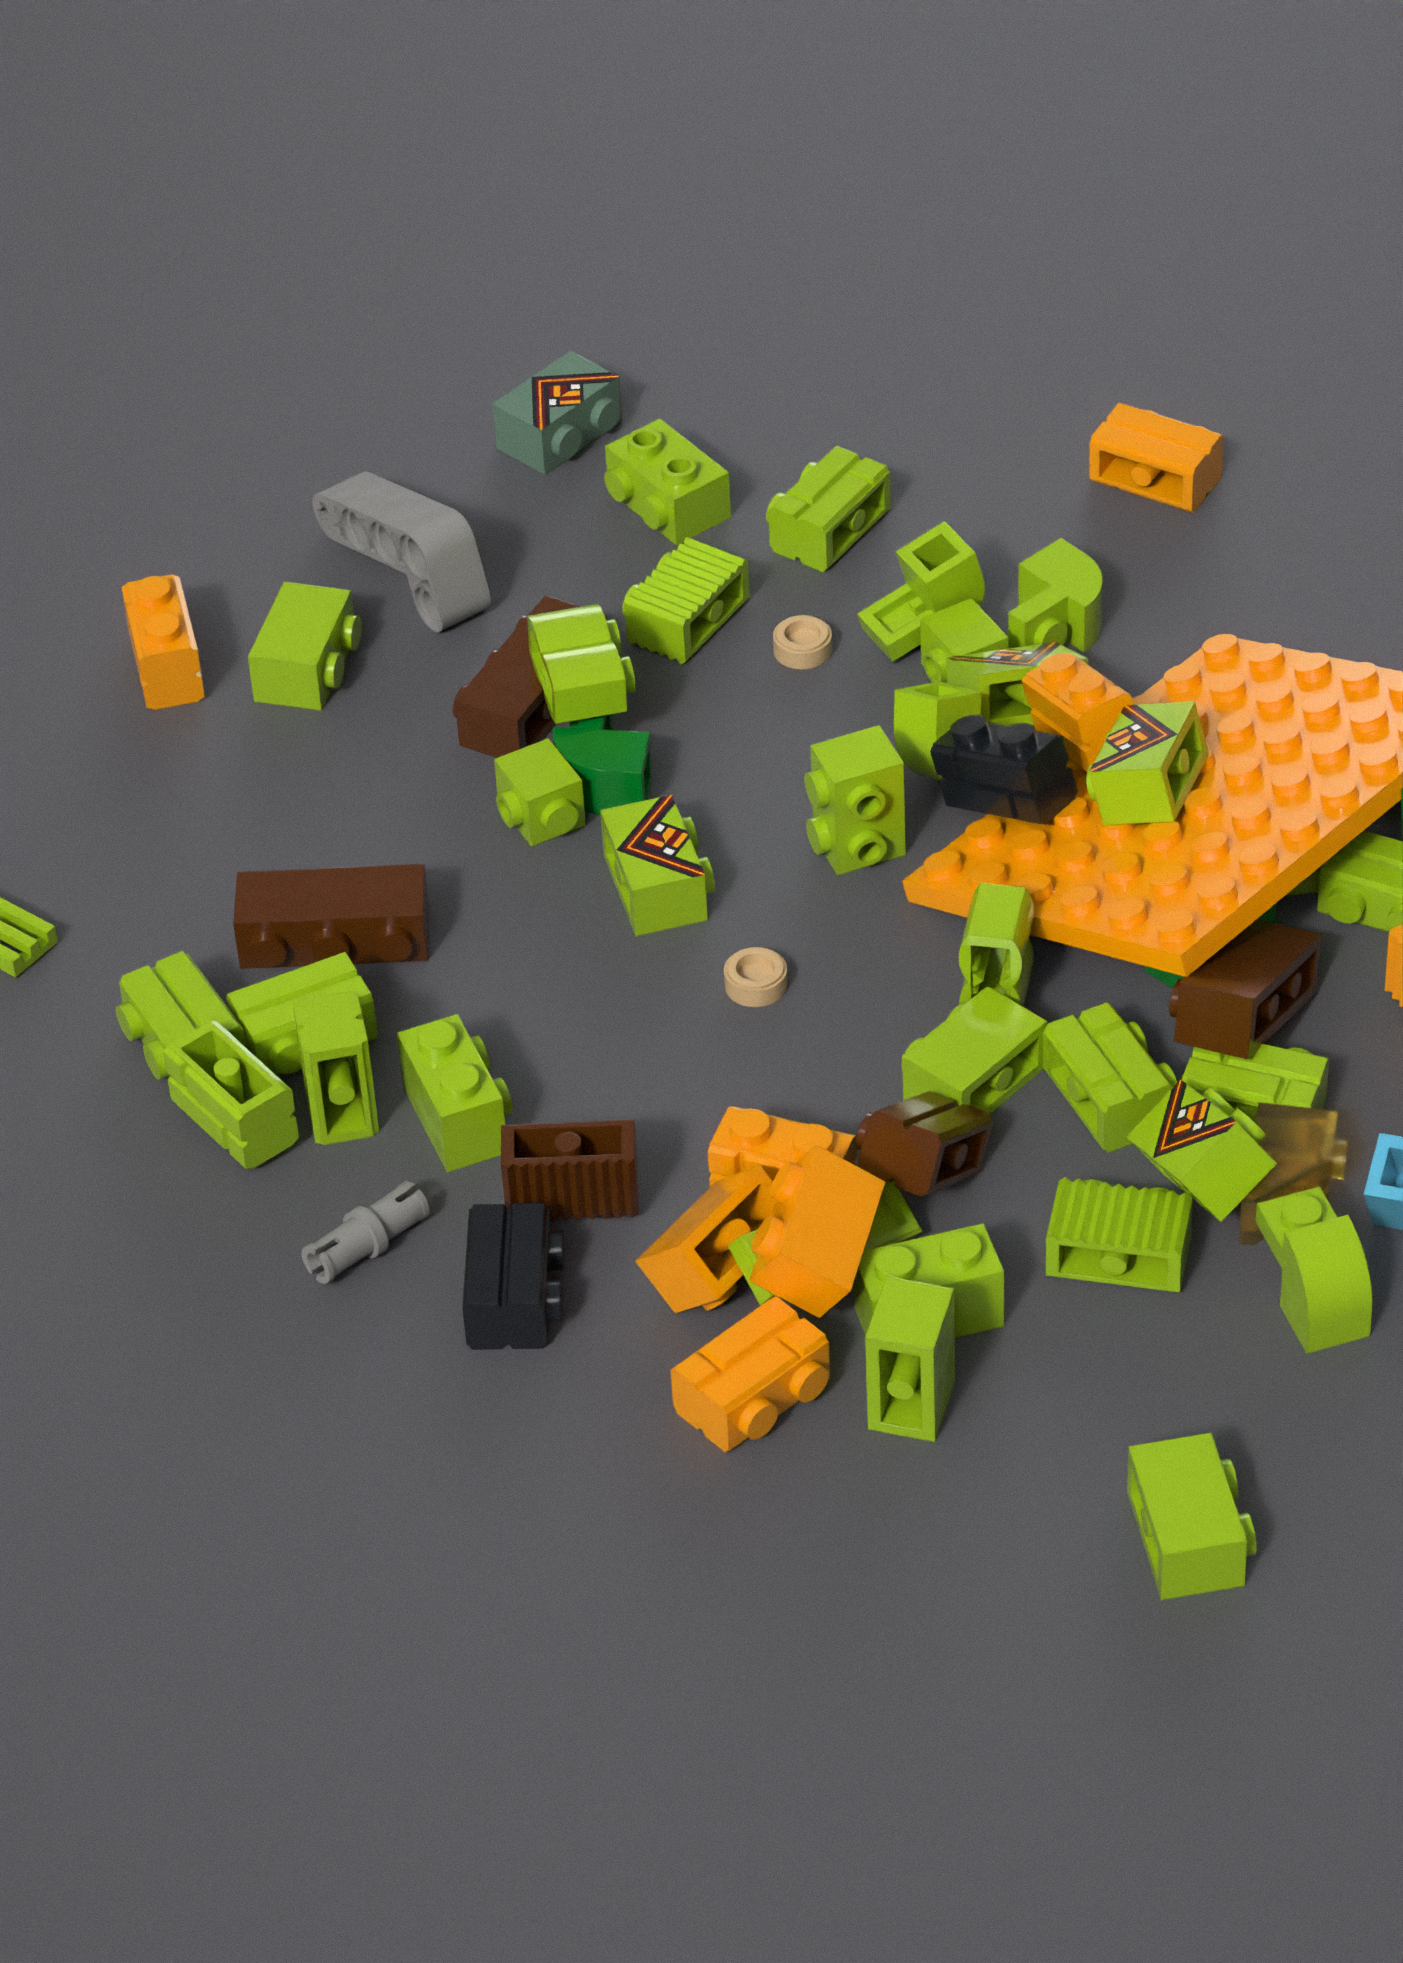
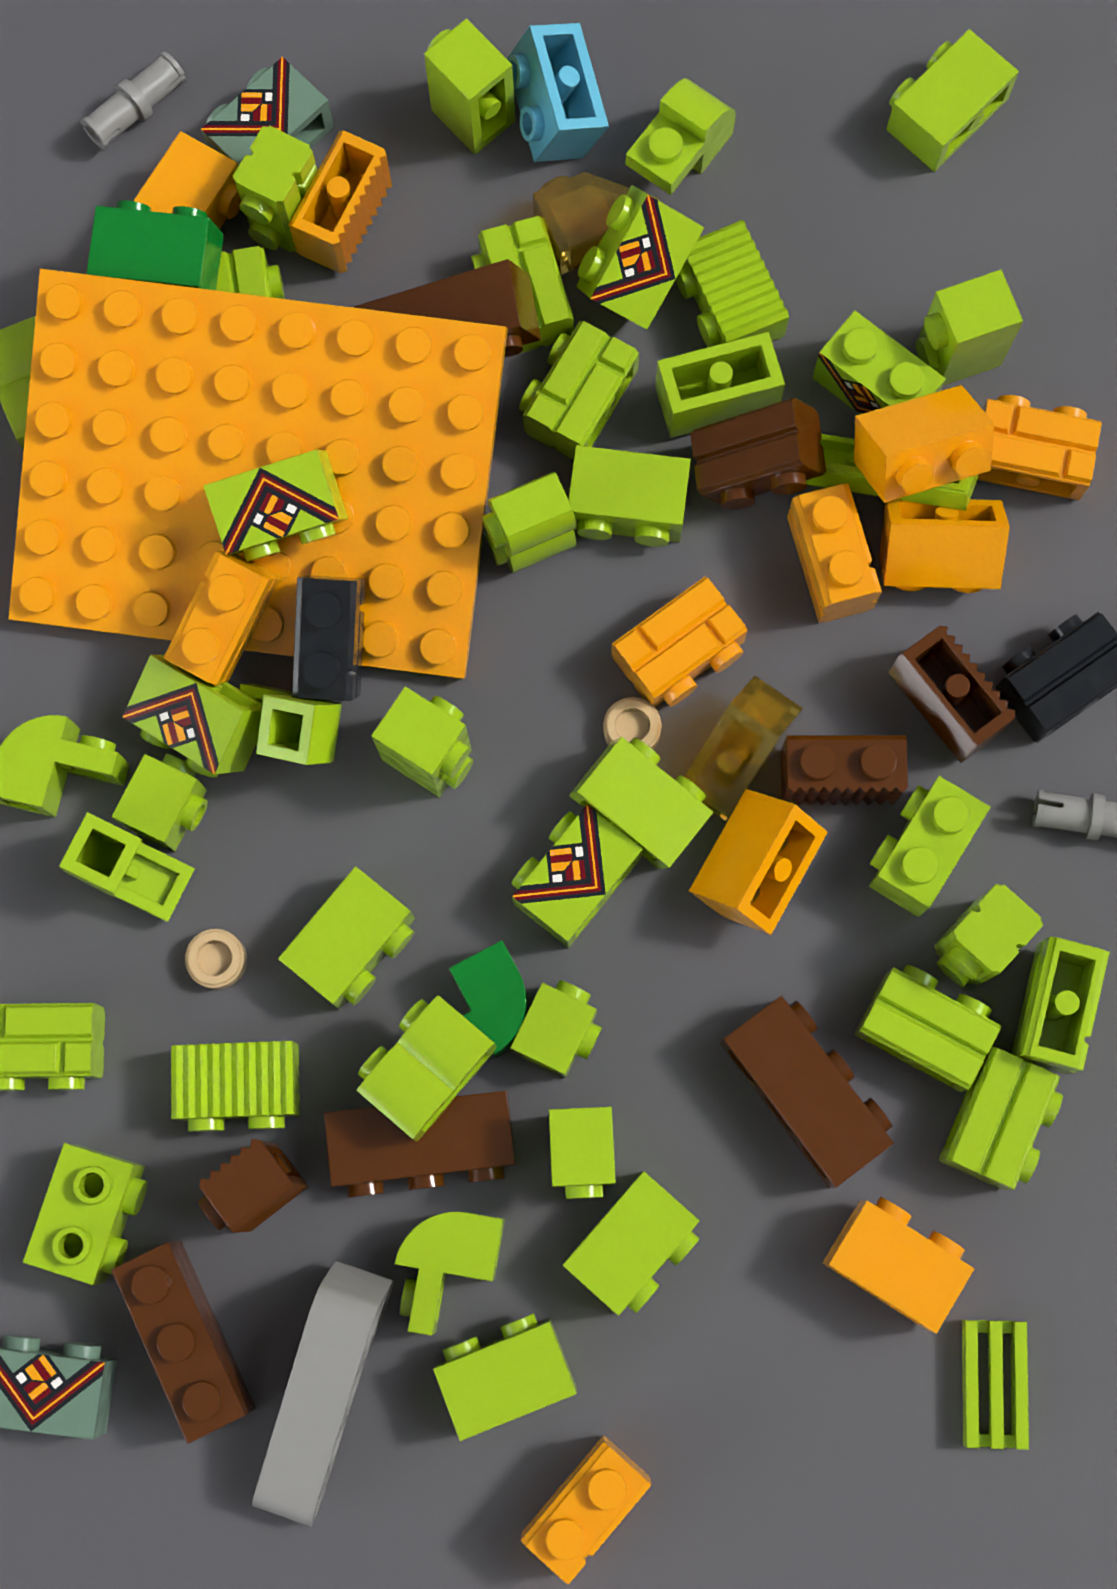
camera: 125 degrees left, 35 degrees up
(140, 892) = (899, 1264): none -> light orange brick
(325, 759) = (632, 1245): none -> lime brick
(421, 653) = (444, 1245): none -> lime brick
(426, 741) = (582, 1150): none -> lime brick
(521, 488) = (183, 1340): none -> reddish brown brick
(550, 968) = (758, 861): none -> light orange brick
(578, 1065) = (843, 768): none -> reddish brown brick
(591, 549) = (250, 1187): none -> reddish brown brick
(668, 1025) = (742, 745): none -> clear yellow slope
(676, 923) = (644, 800): none -> lime brick
(738, 709) = (349, 939): none -> lime brick
(798, 1027) = (680, 644): none -> light orange brick
(1021, 1159) = (718, 383): none -> lime brick

